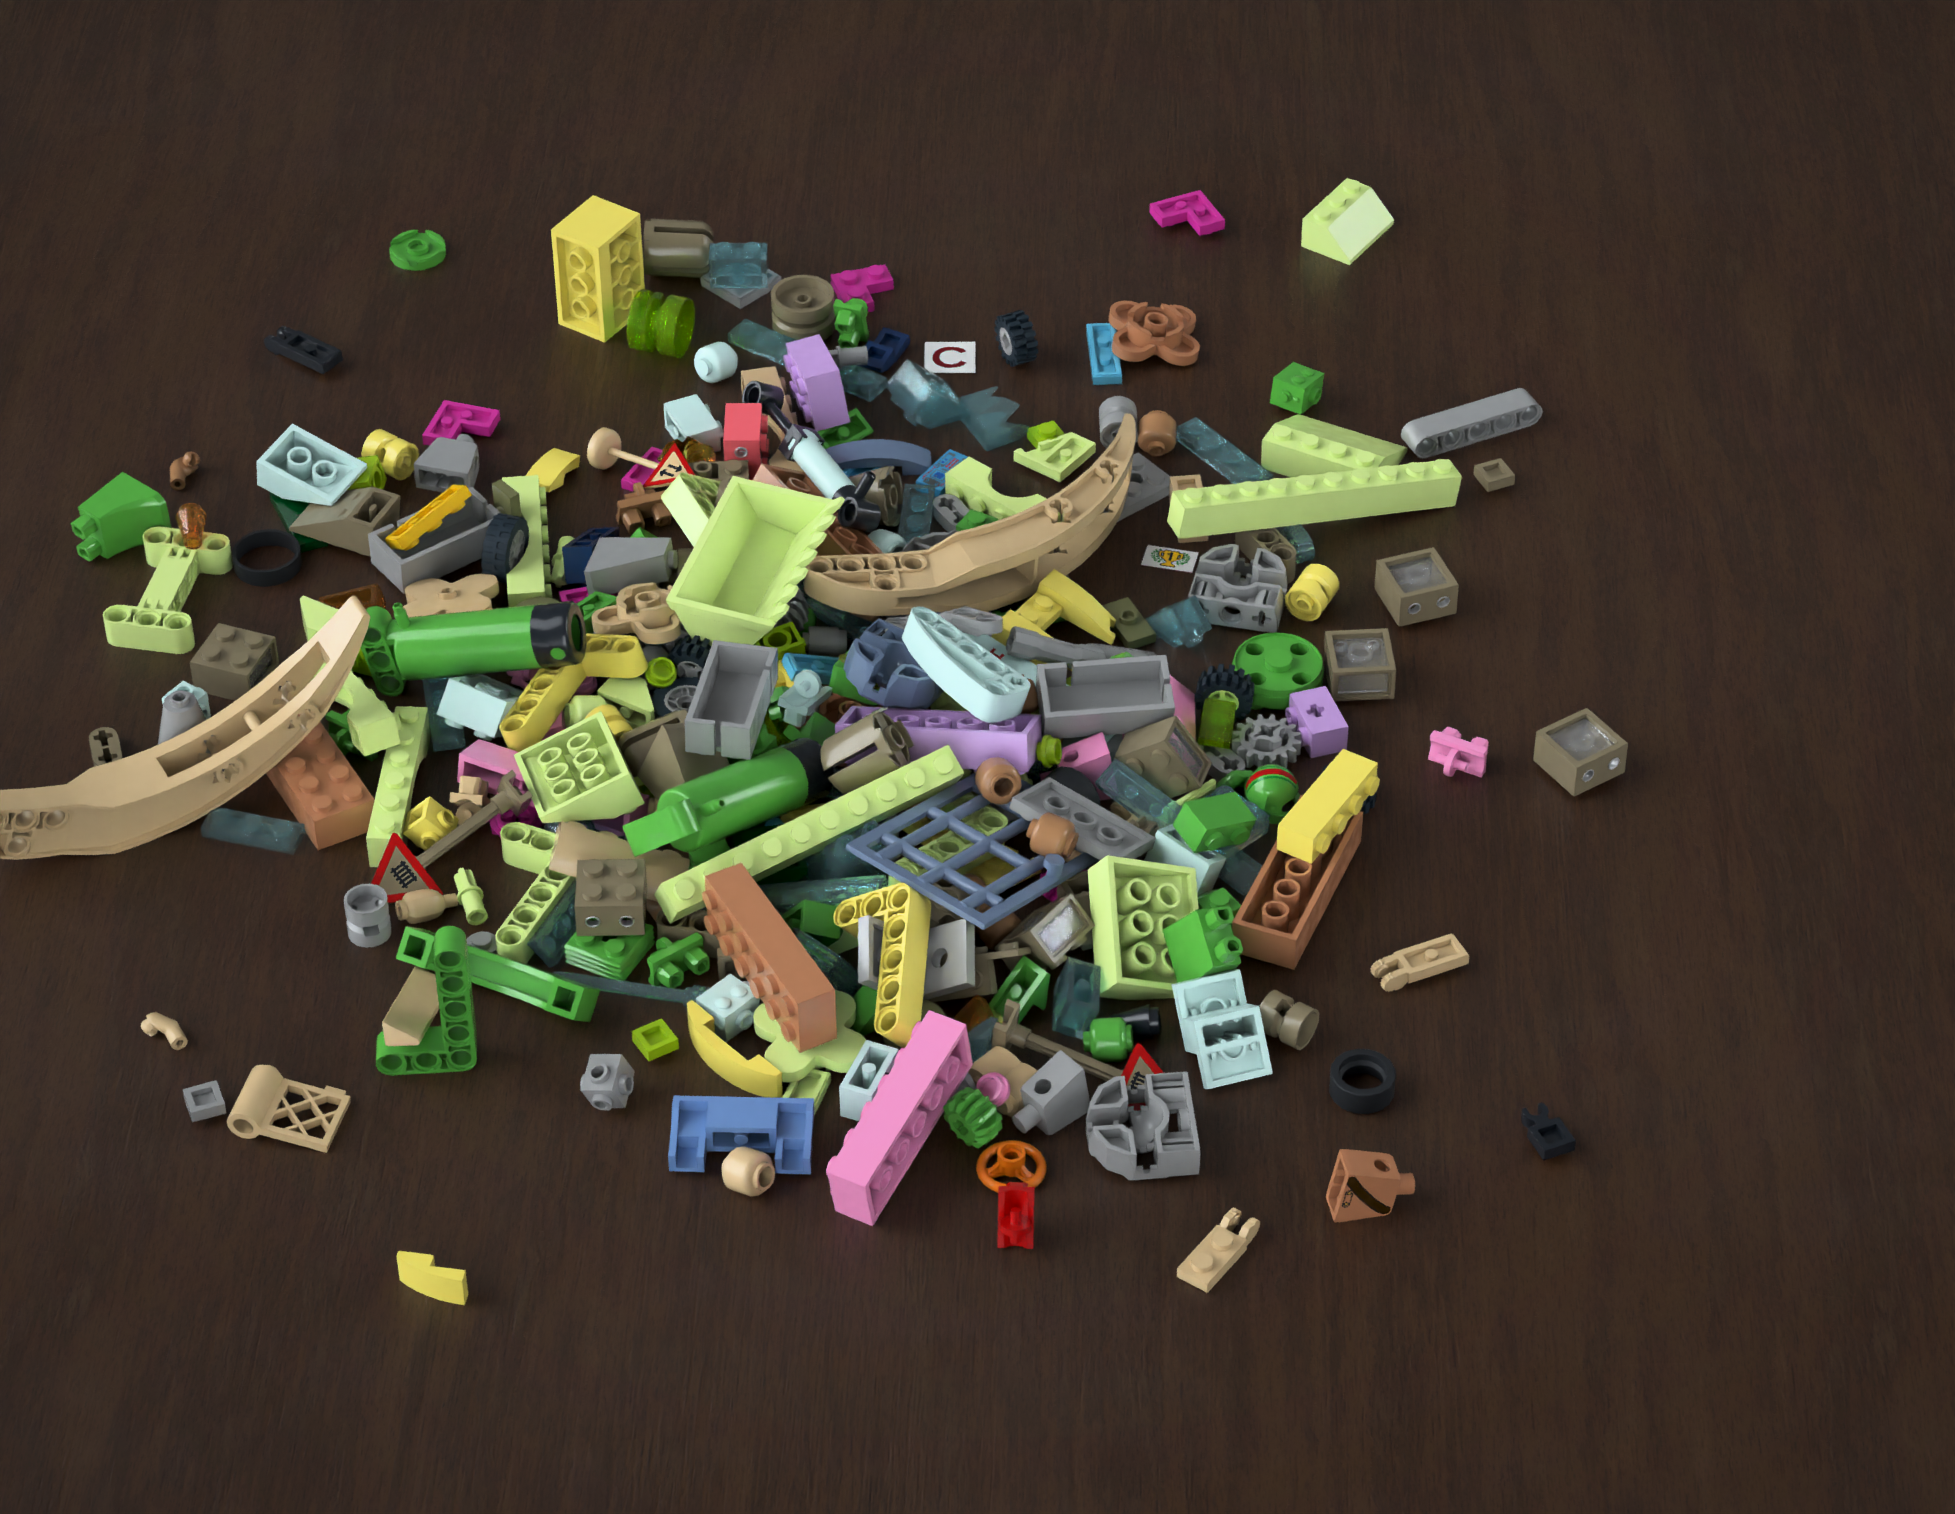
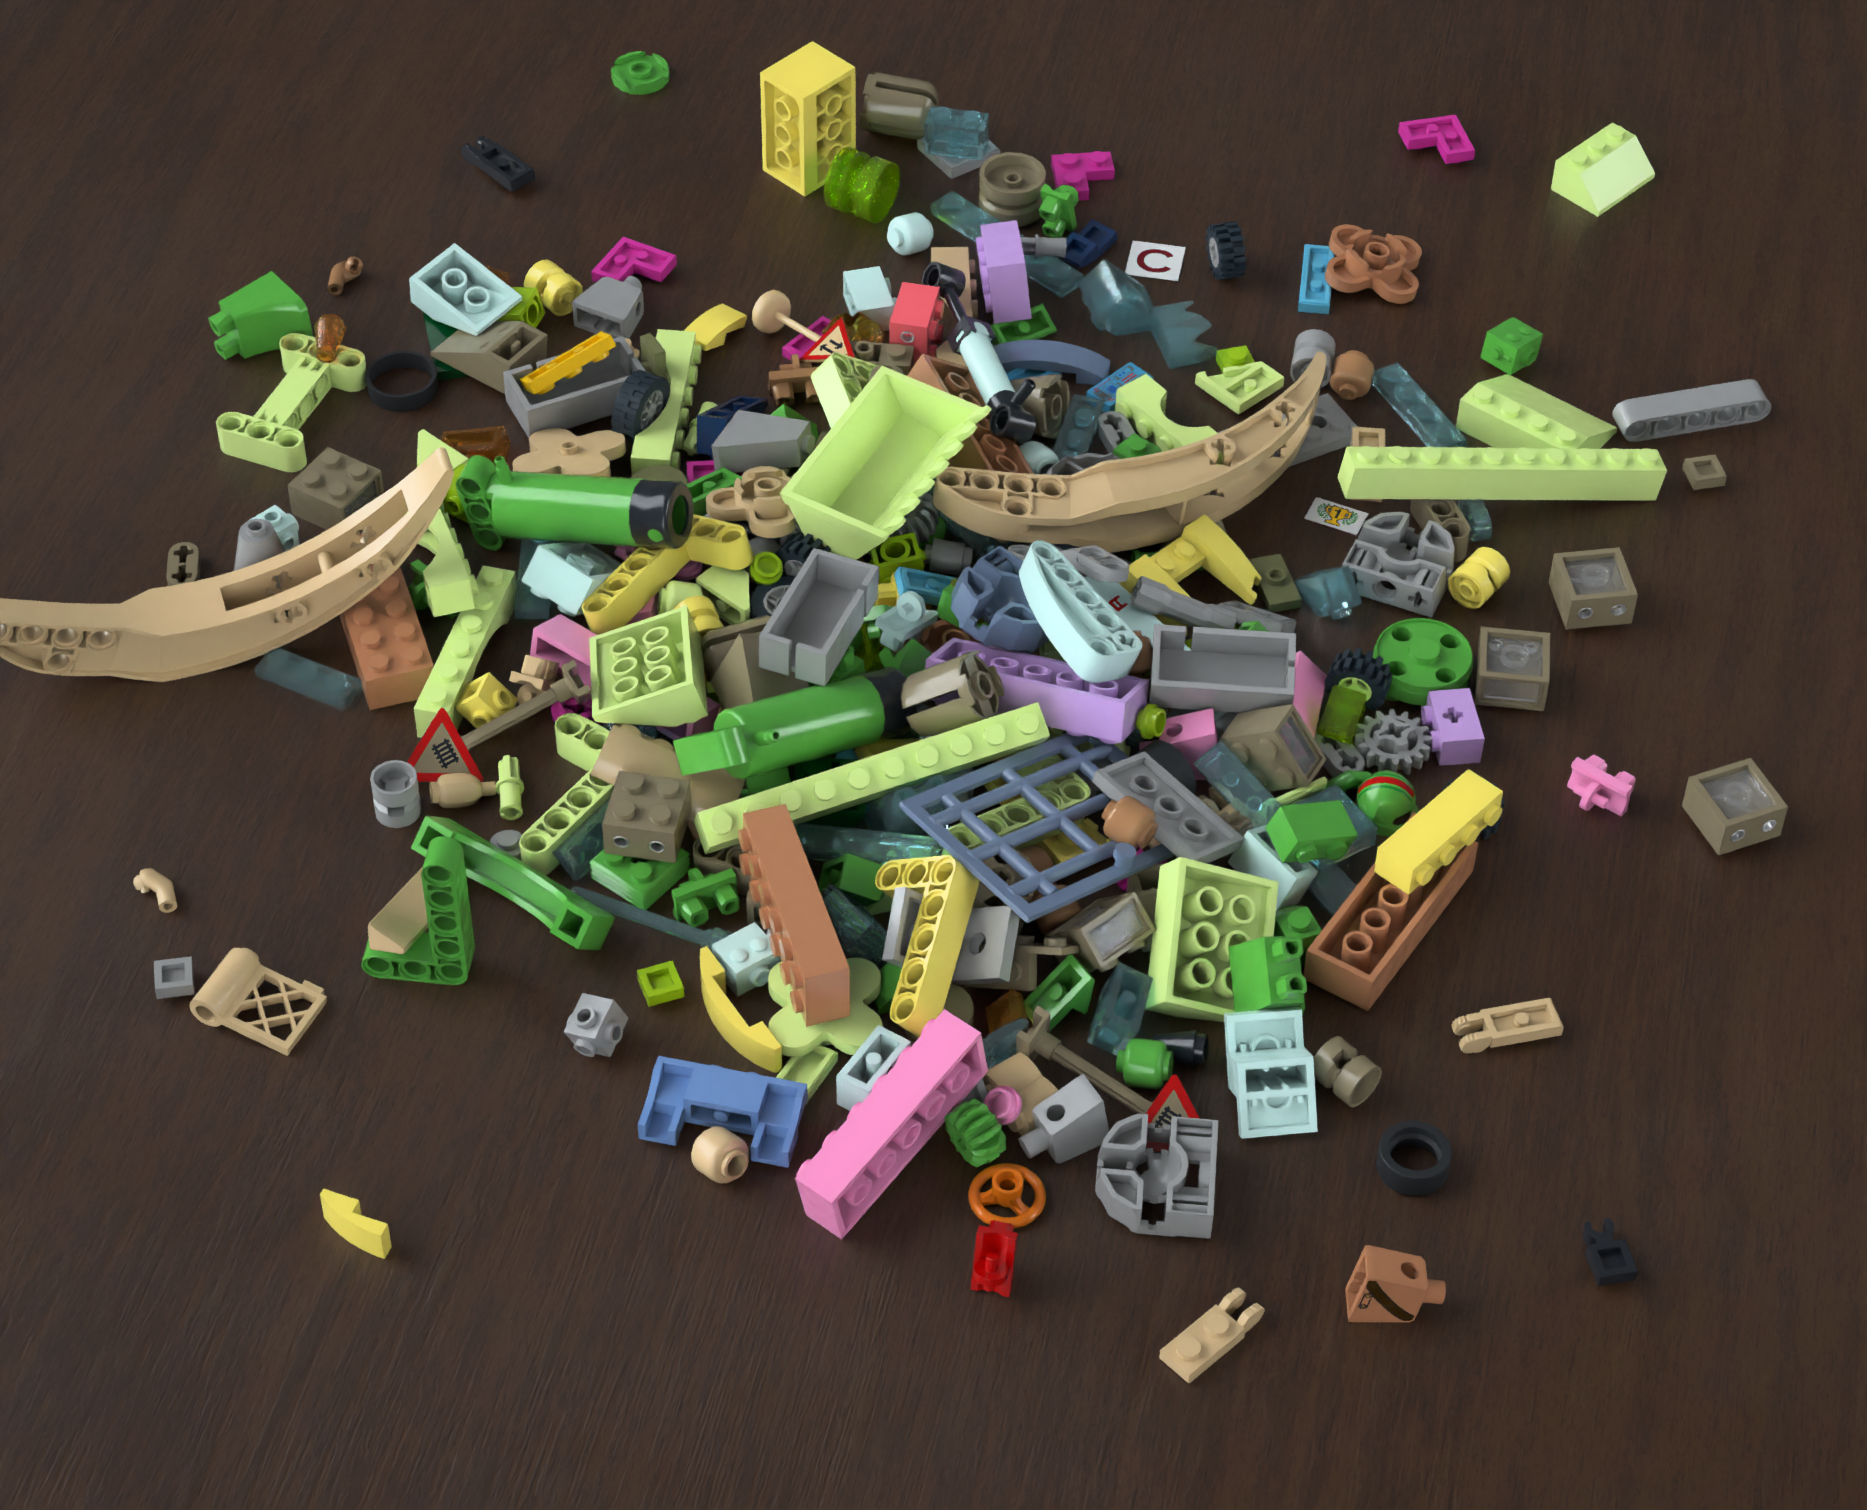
camera: 10 degrees right, 5 degrees up
(997, 780) = (1086, 748): medium nougat head -> none

